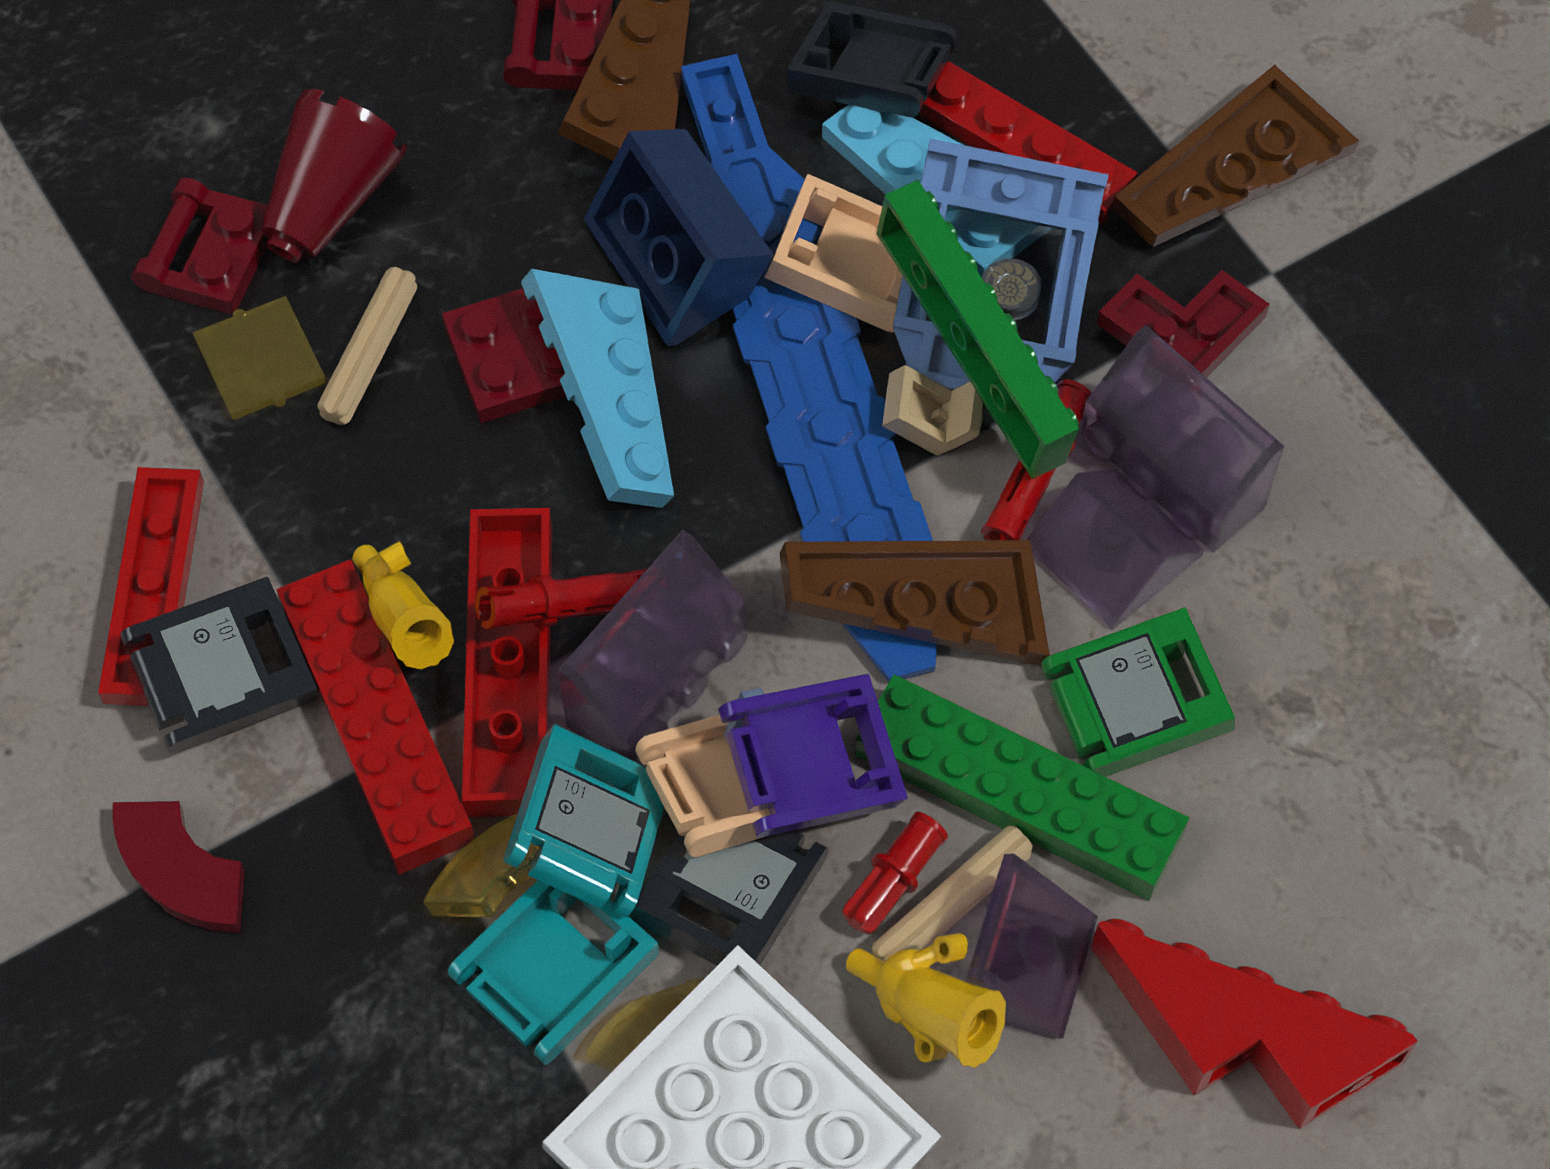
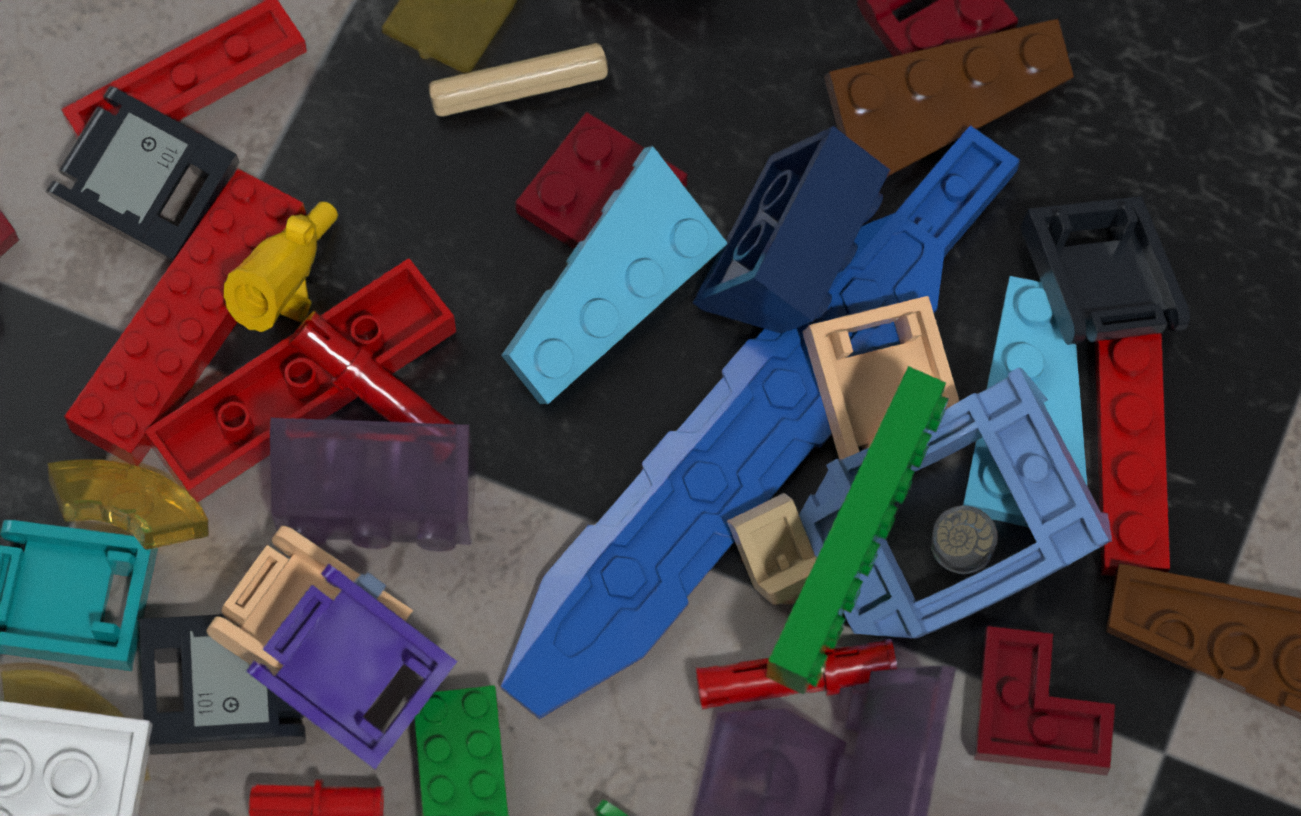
camera: 55 degrees right, 5 degrees up
(583, 826) = (177, 535): teal container -> none
(931, 591) = (597, 667): reddish brown wing -> none

